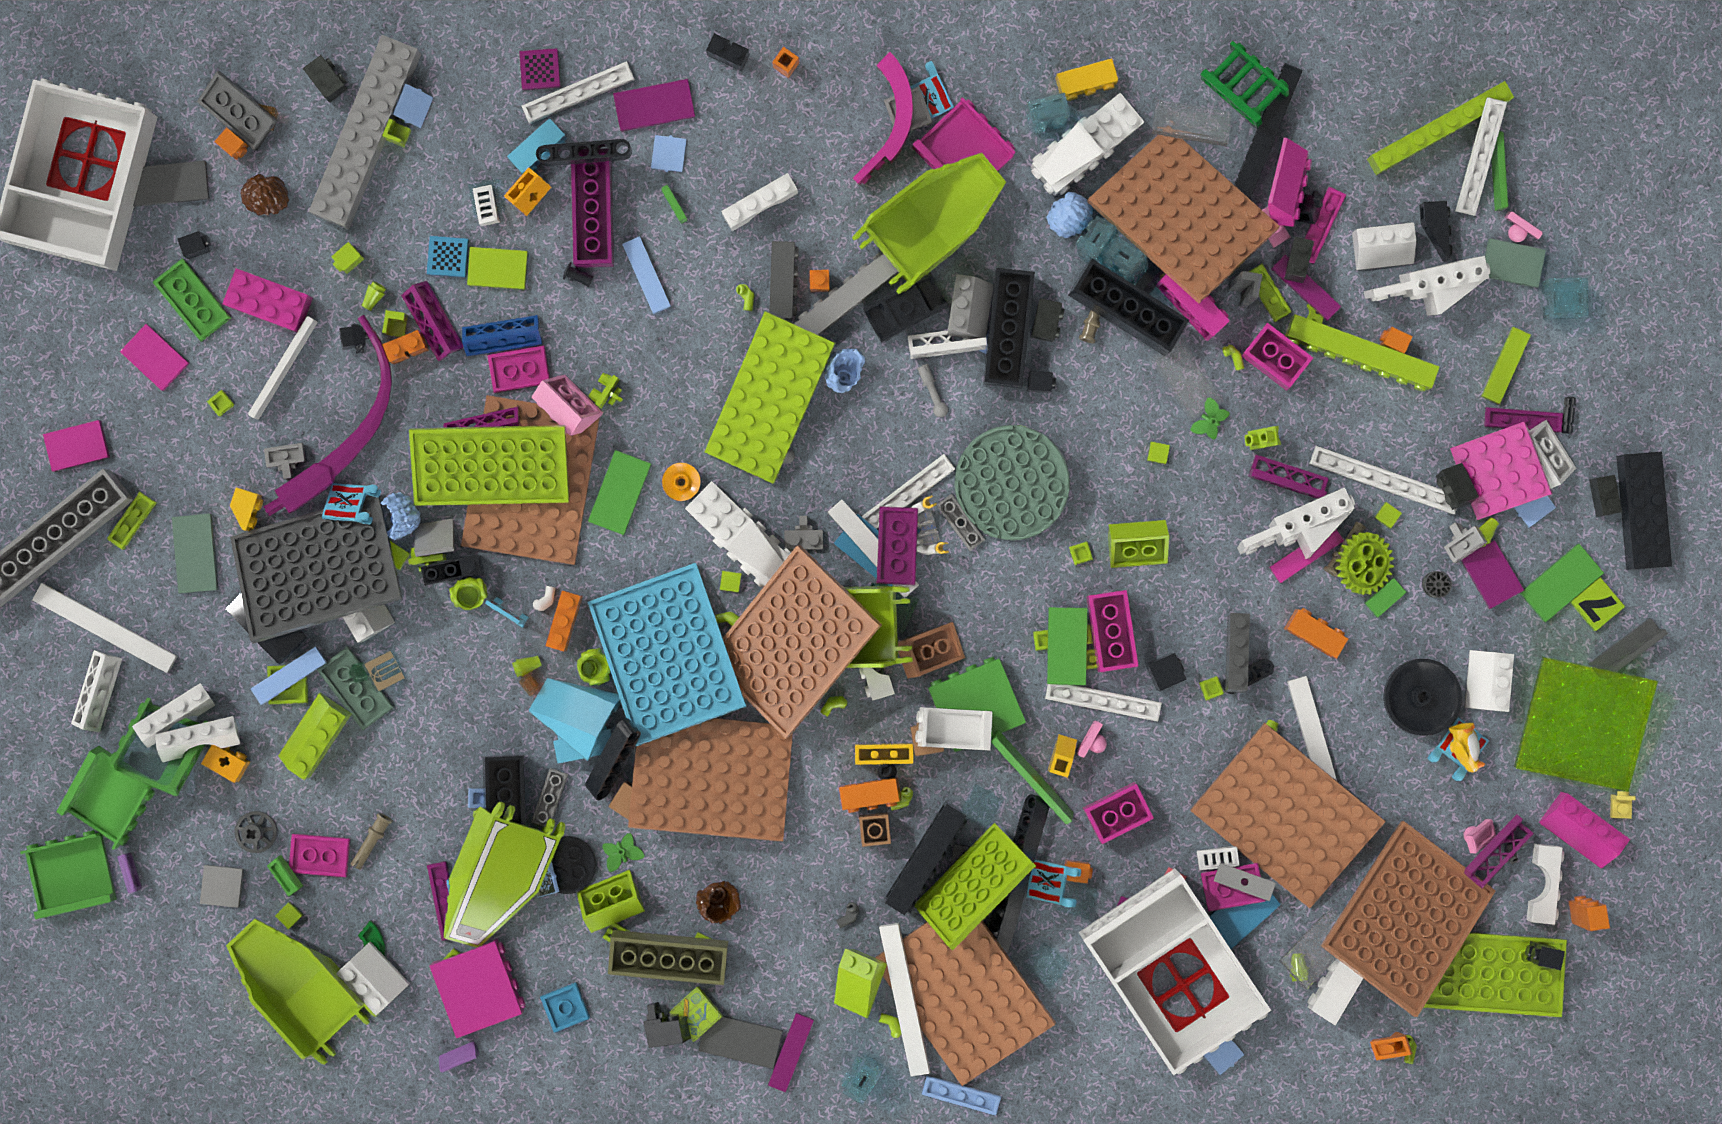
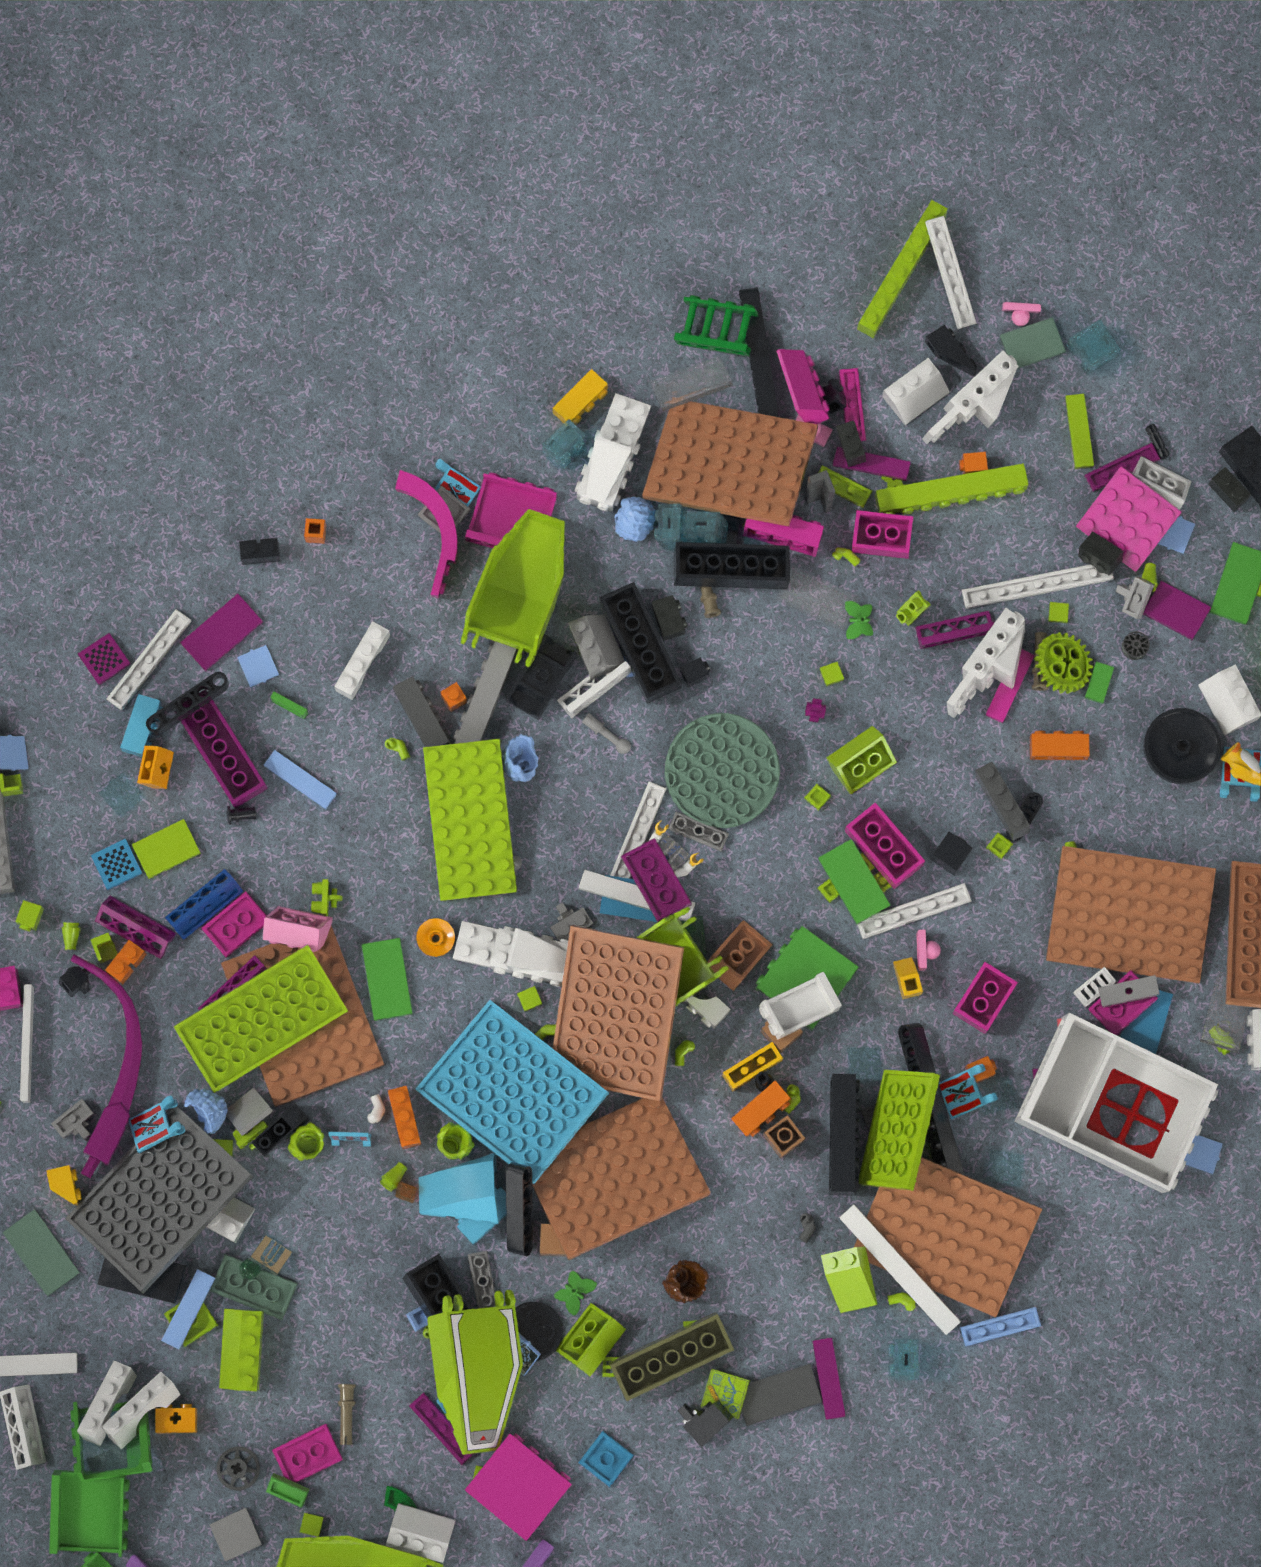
camera: 25 degrees left, 10 degrees down
(491, 219) = (135, 811): white slope -> none
(1032, 777) = (892, 1010): bright green tile -> none
(1124, 477) = (815, 710): none -> magenta gear
(1310, 724) = (1101, 825): white tile -> none
(1499, 174) = (975, 278): bright green tile -> none

